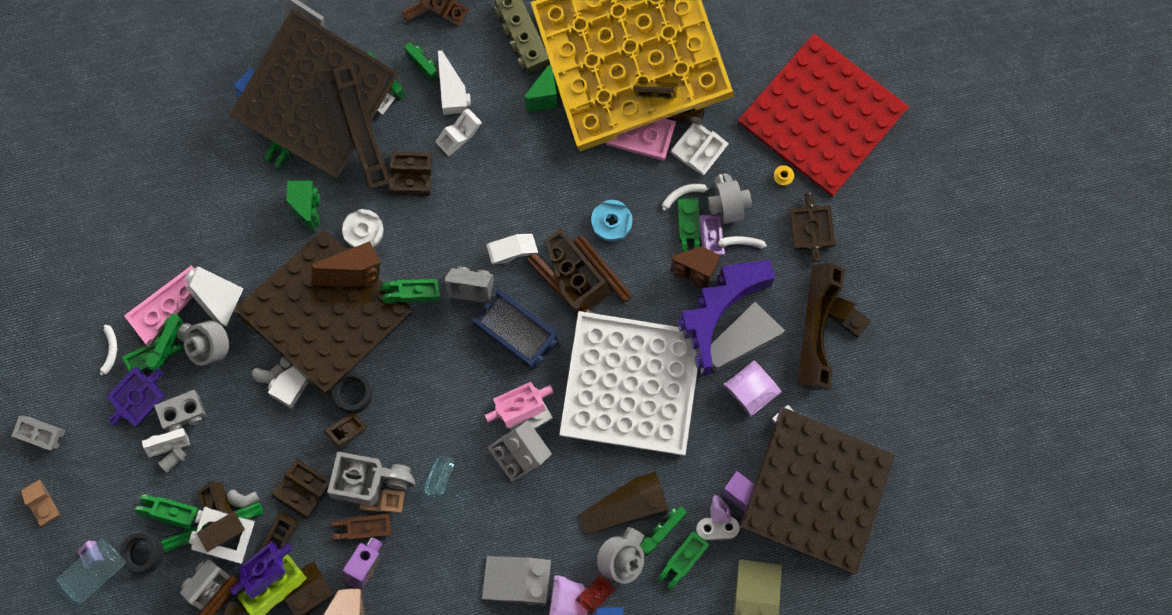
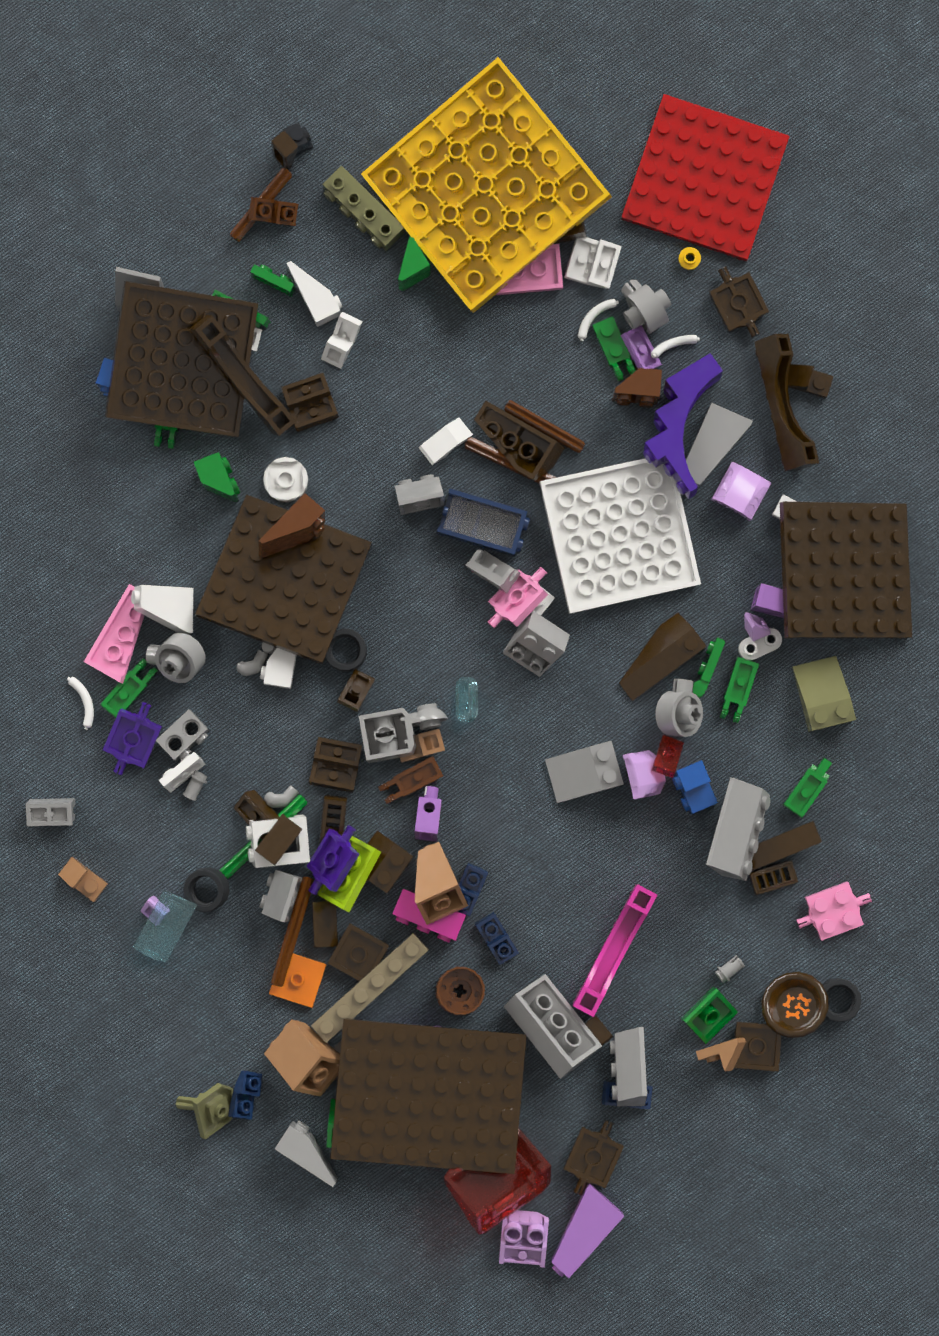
camera: 20 degrees left, 10 degrees up
(164, 343) = (137, 676): green hinge -> none
(167, 511) = (213, 839): green hinge -> none
(411, 290) = (363, 524): green hinge -> none
(507, 372) = (493, 570): none -> light grey hinge
(611, 232) = (542, 363): medium azure plate -> none
(656, 89) = (530, 221): dark brown slope -> none

